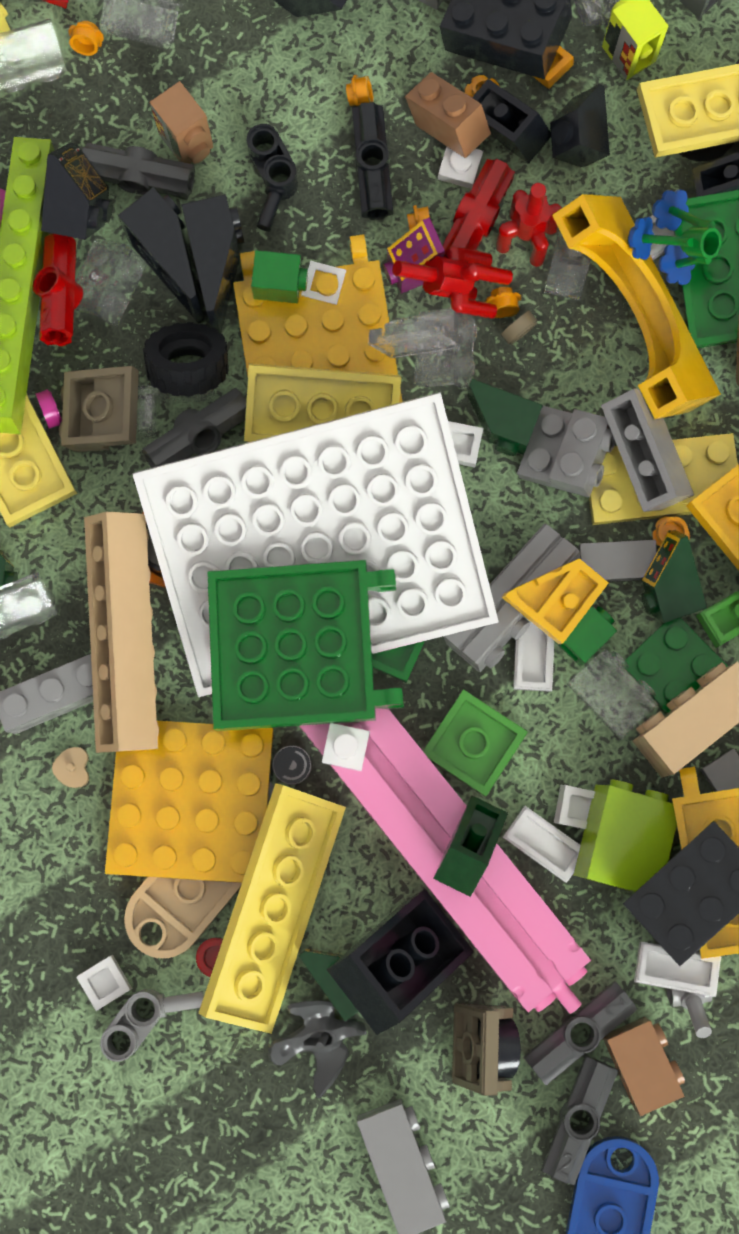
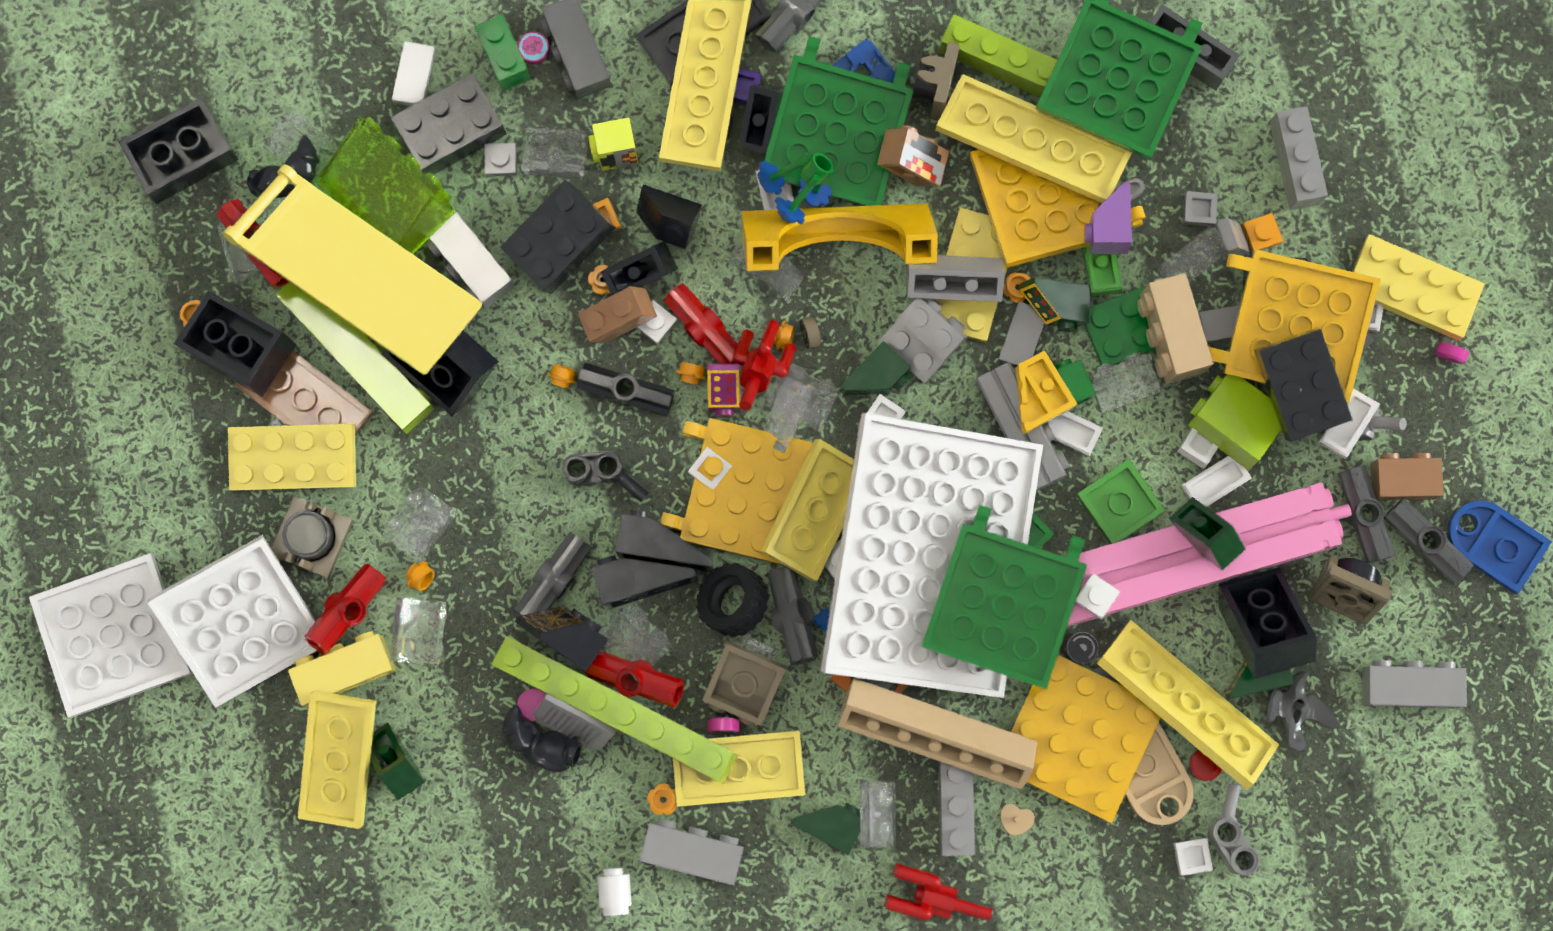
camera: 70 degrees left, 0 degrees up
(182, 124) = (538, 526): medium nougat brick -> none
(278, 276) = (697, 500): green brick -> none
(530, 221) = (734, 289): red plant -> none

